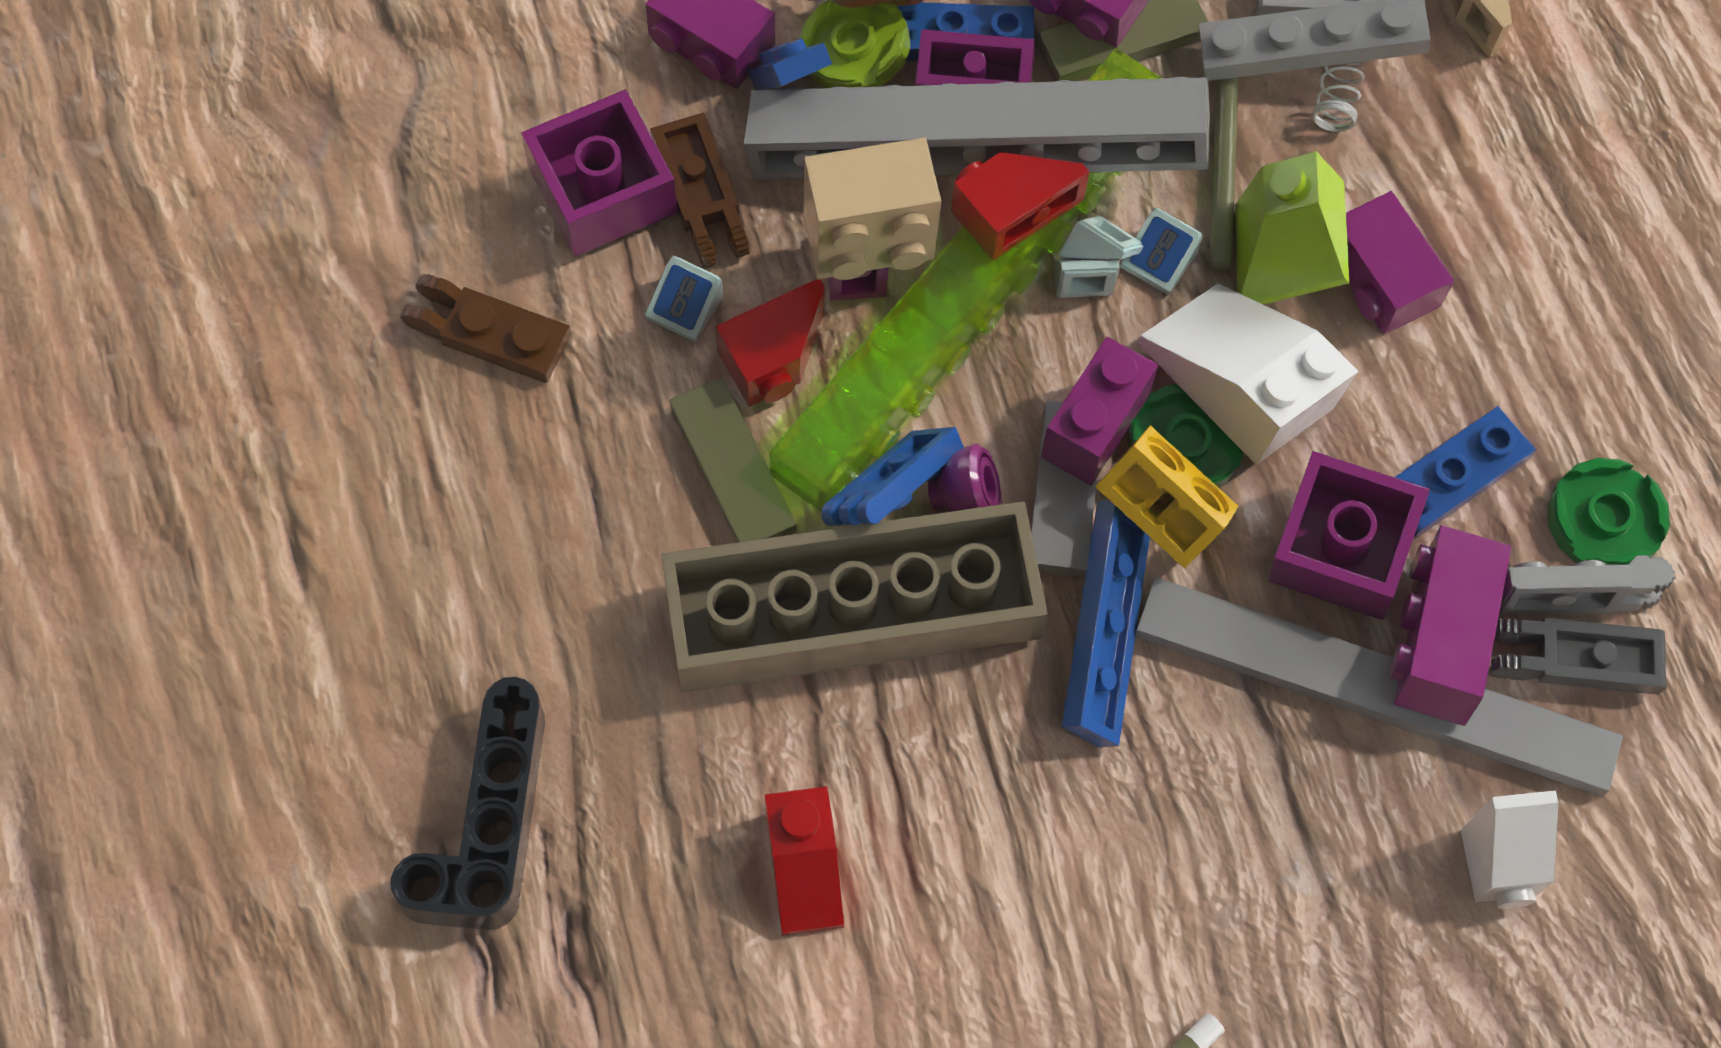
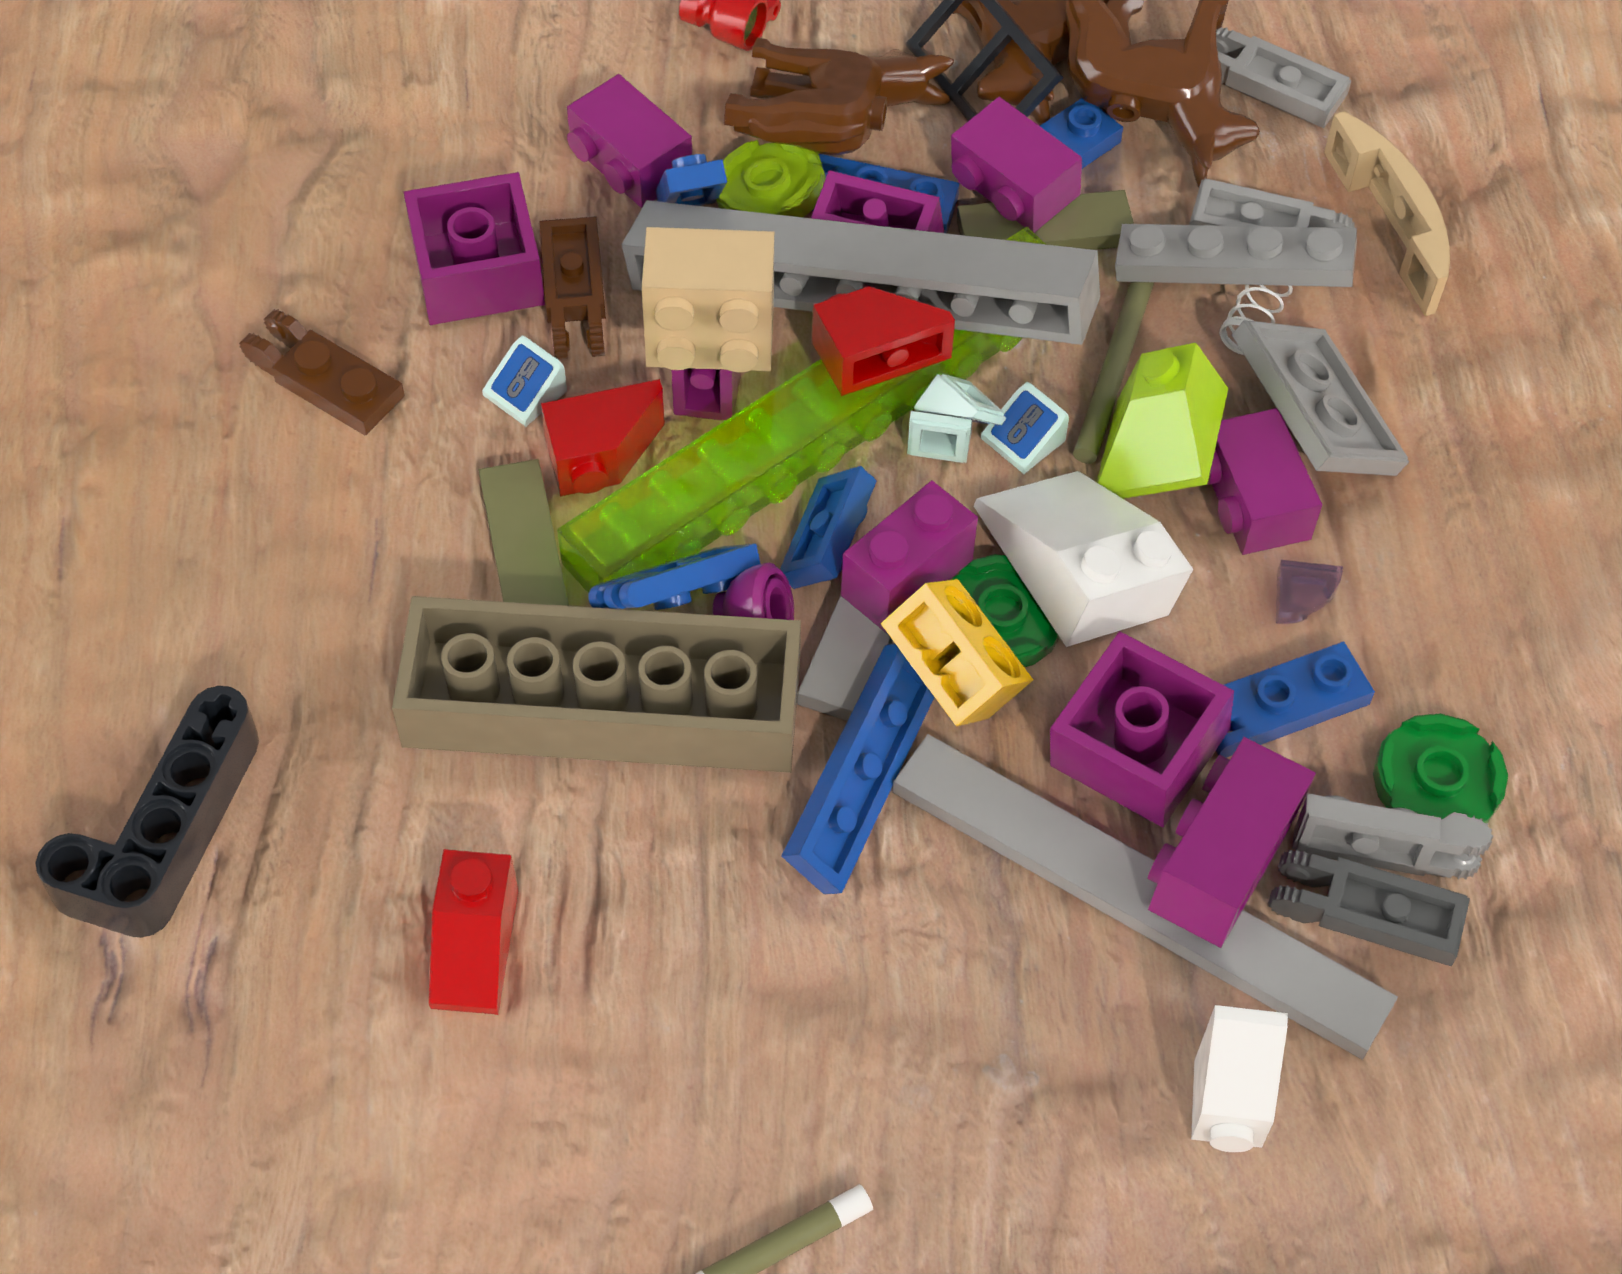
camera: 15 degrees right, 10 degrees down
(1010, 391) = (828, 527): none -> blue plate
(1422, 169) = (1320, 399): none -> light grey tile
(1448, 360) = (1304, 589): none -> clear purple tile

